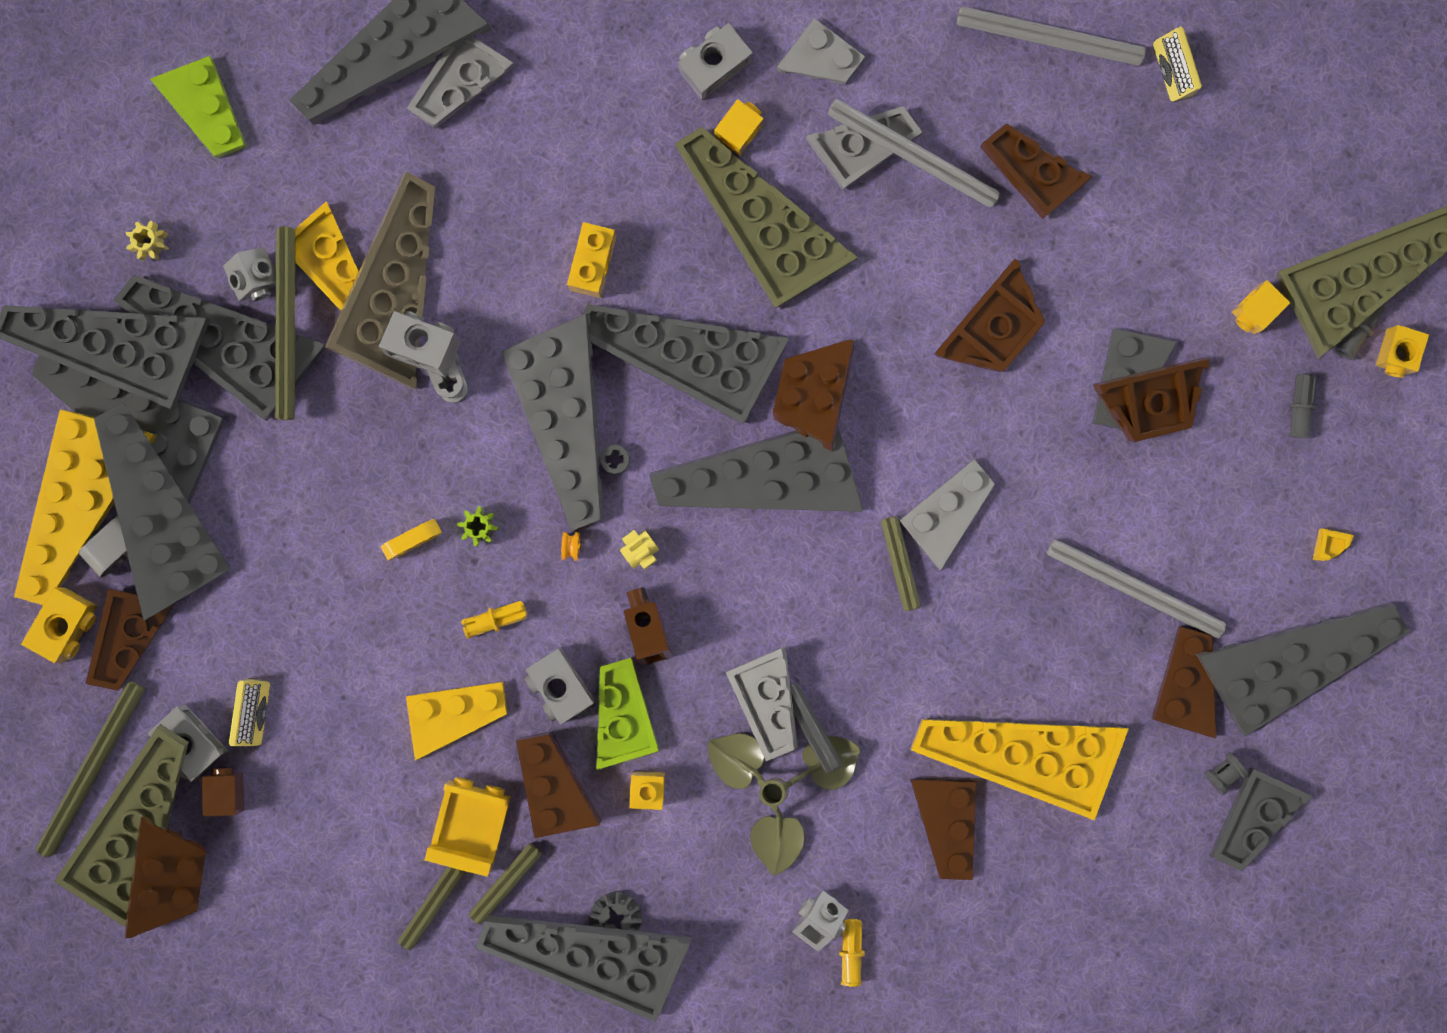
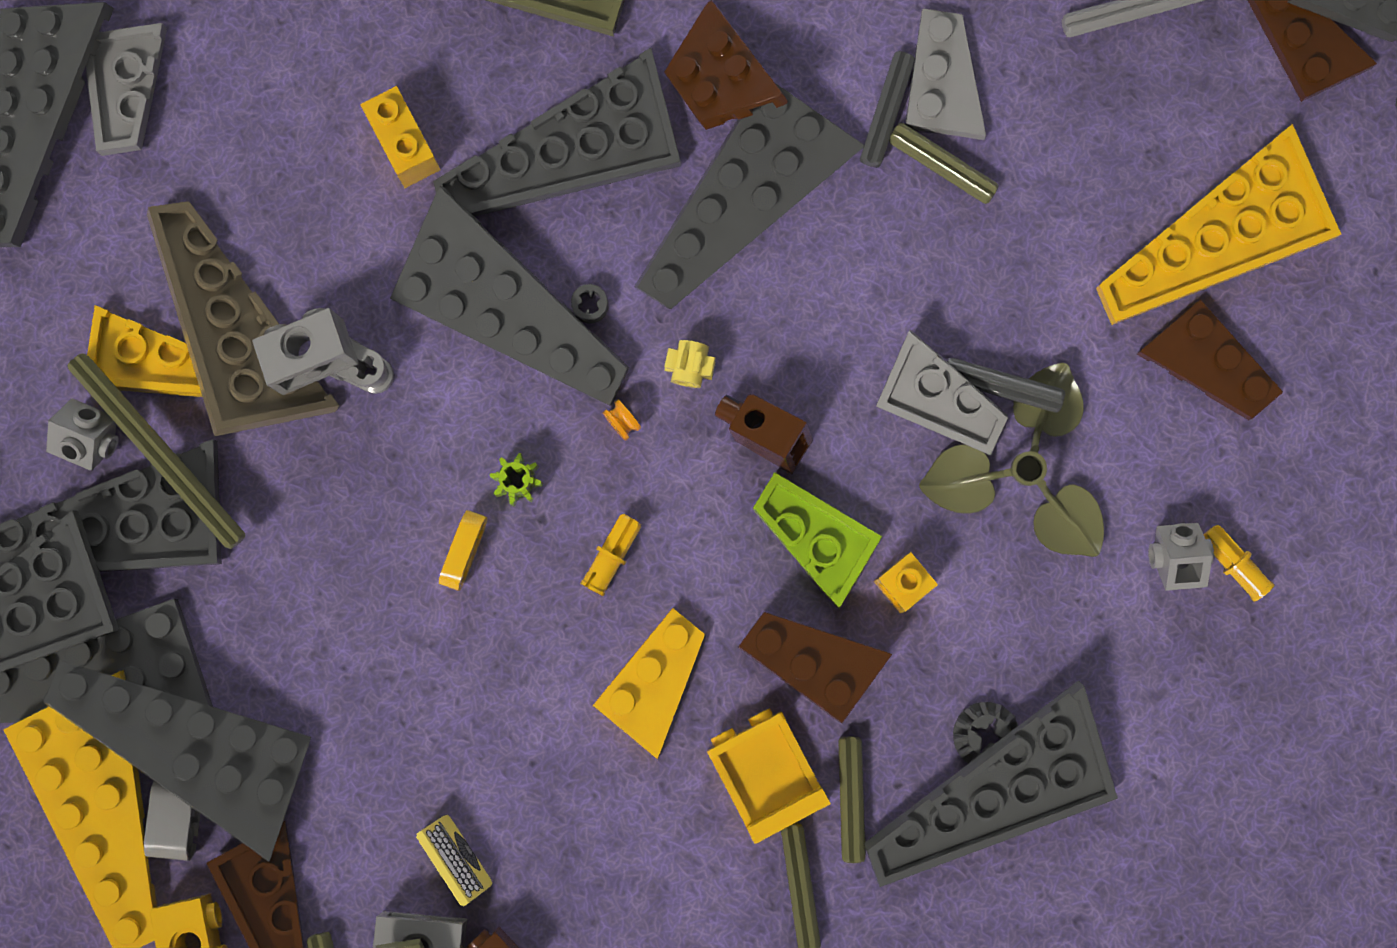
camera: 45 degrees left, 5 degrees down
(576, 696) = (756, 554): light grey brick -> none
(897, 501) = (887, 109): none -> dark grey axle

